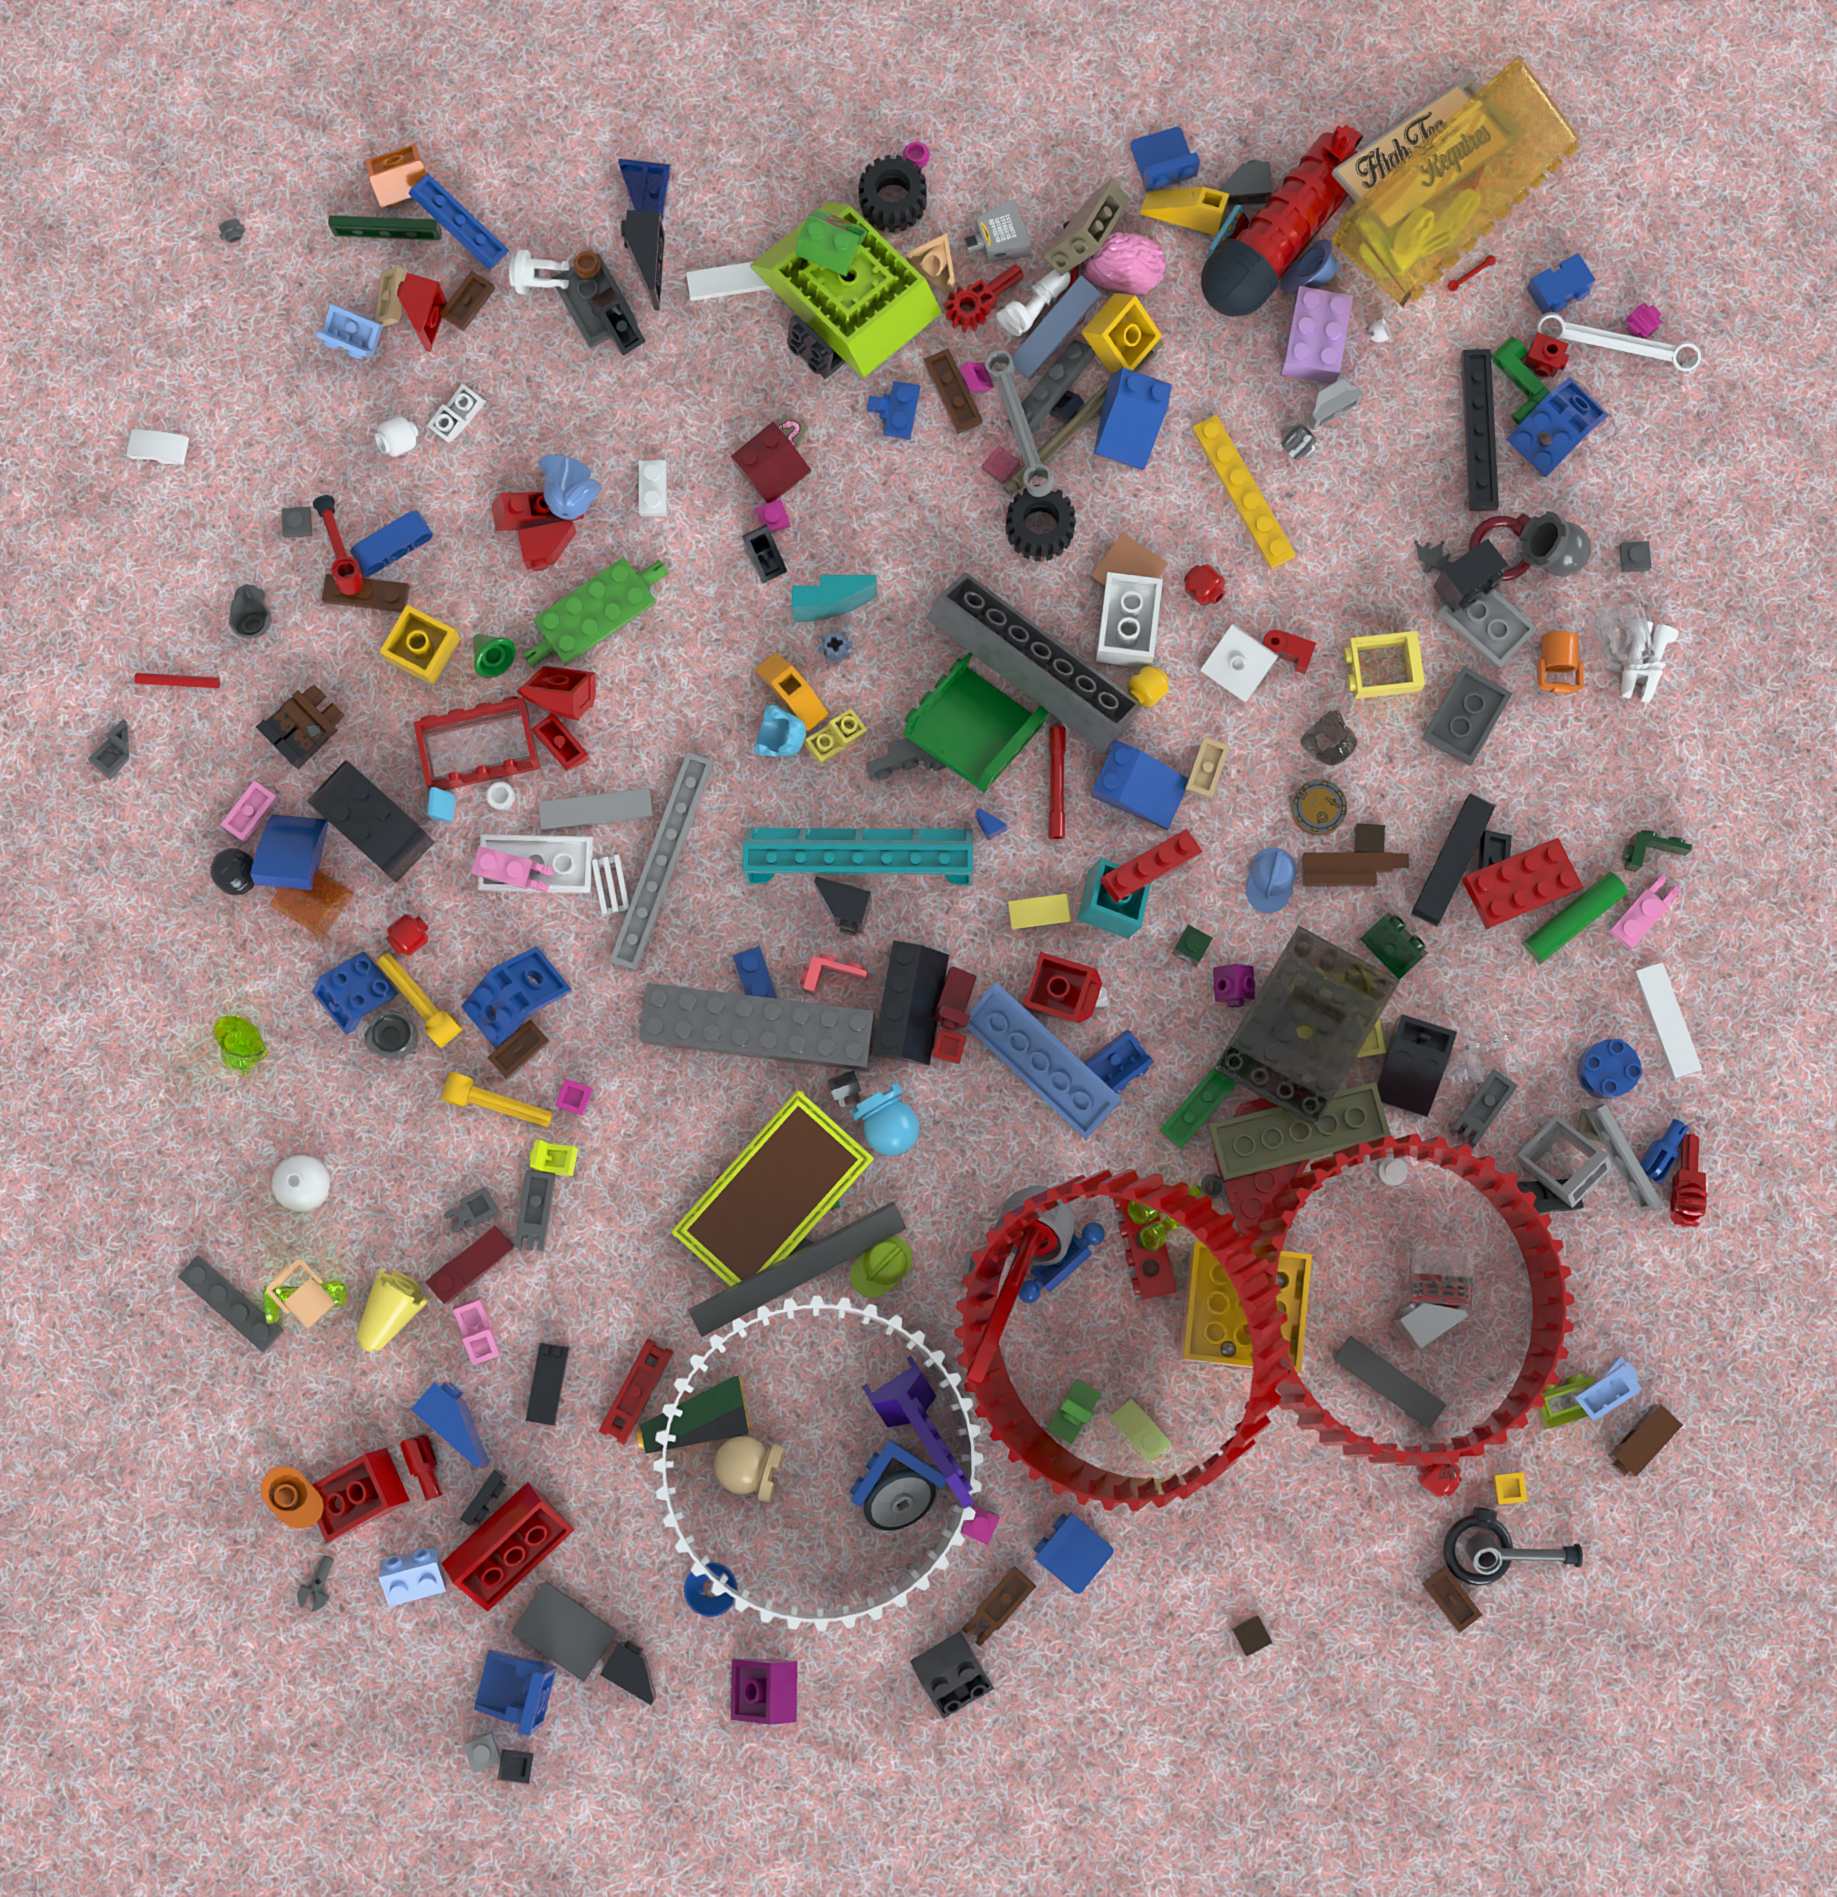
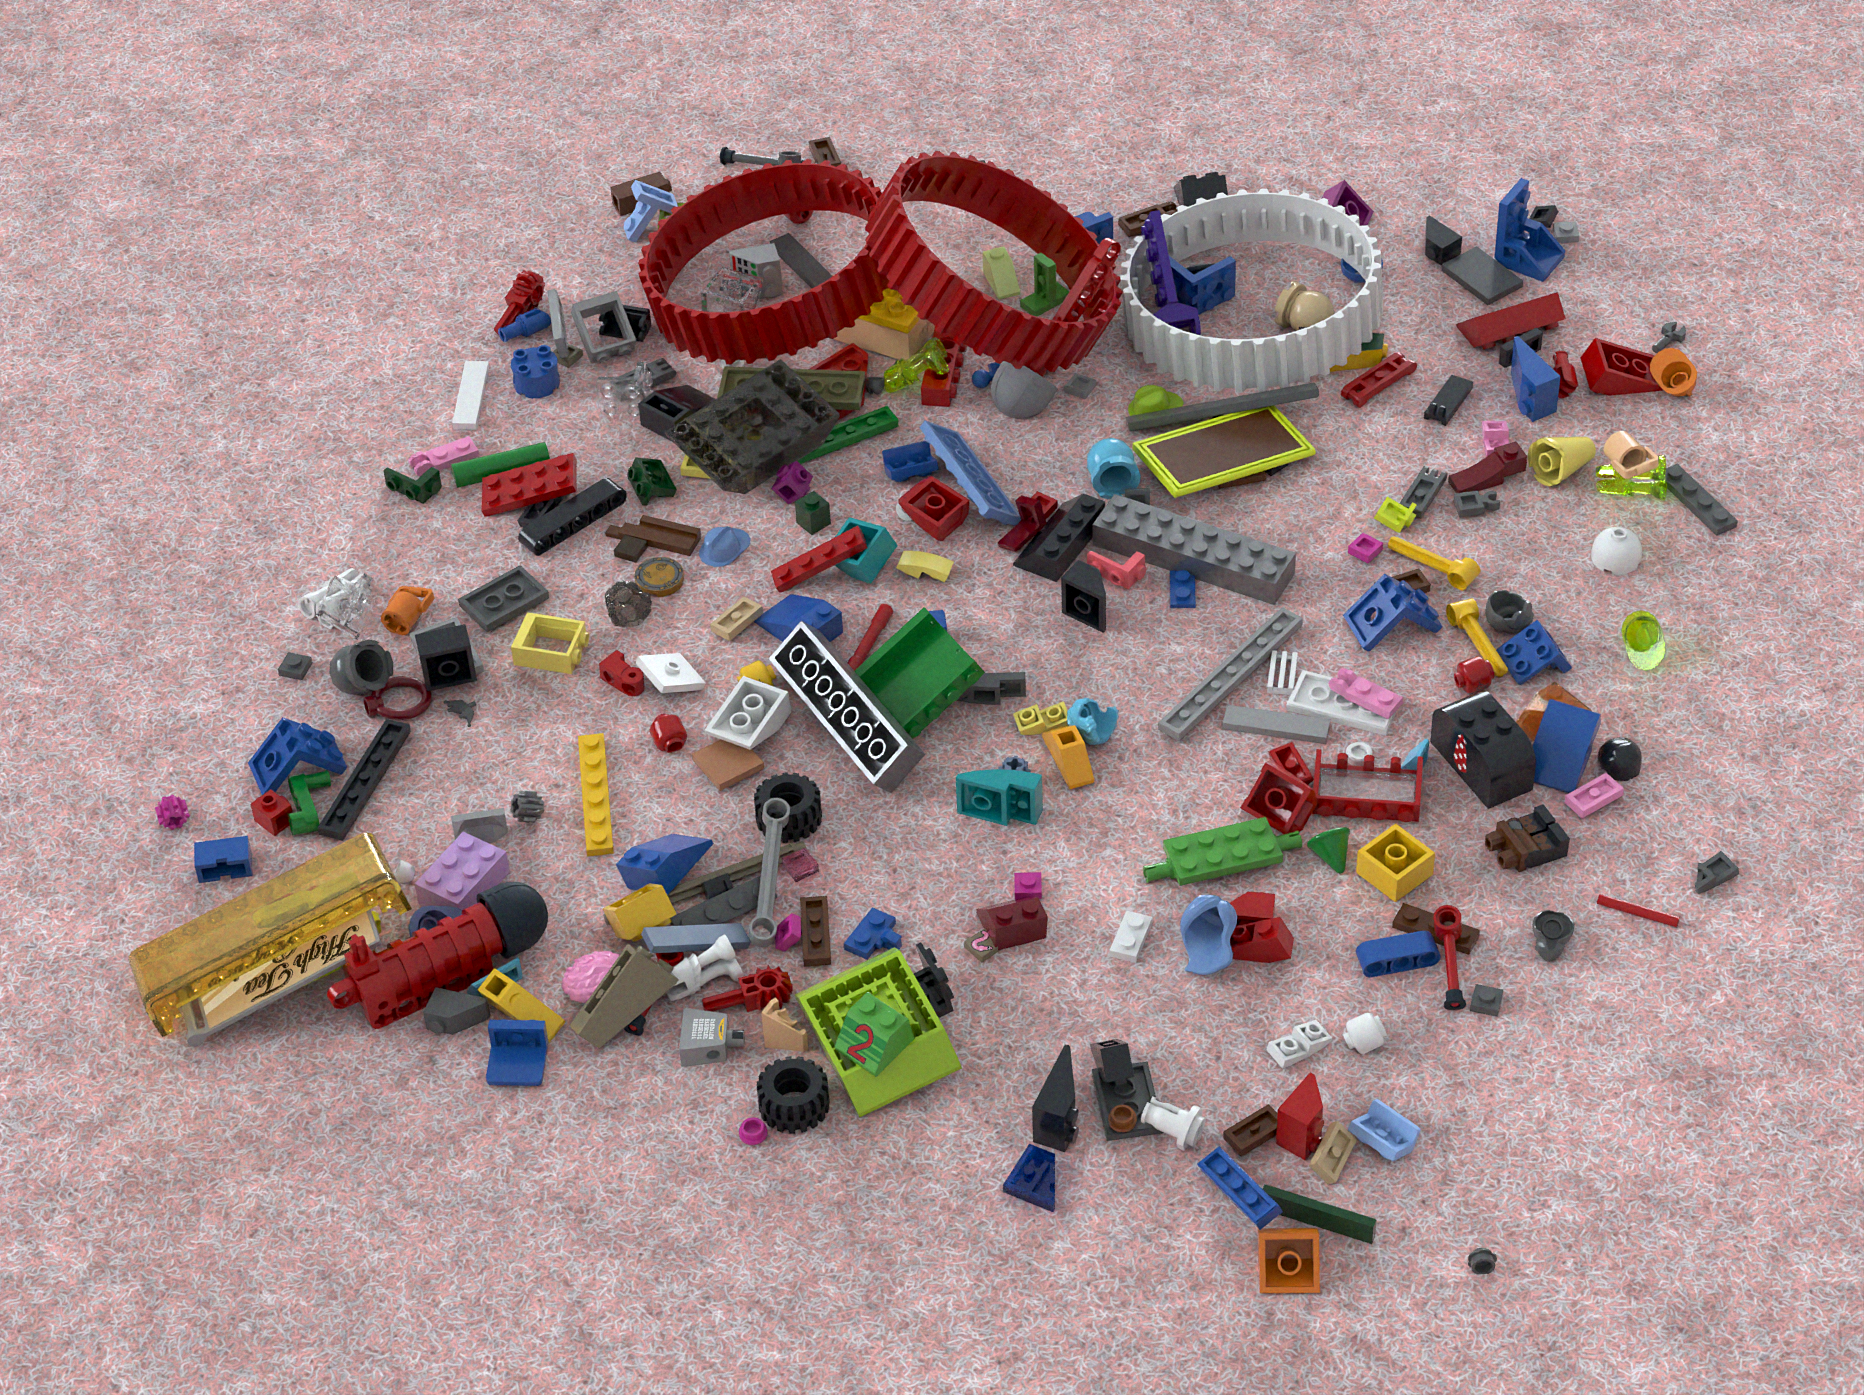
camera: 160 degrees left, 35 degrees down
(157, 446) = (1603, 1090): white slope -> none
(411, 1576) = (1591, 325): light blue bracket -> none
(723, 281) = (987, 1081): white tile -> none
(763, 553) = (1049, 859): black slope -> none
(858, 852) = (1065, 595): teal window -> none
(1621, 342) = (158, 781): white piece -> none

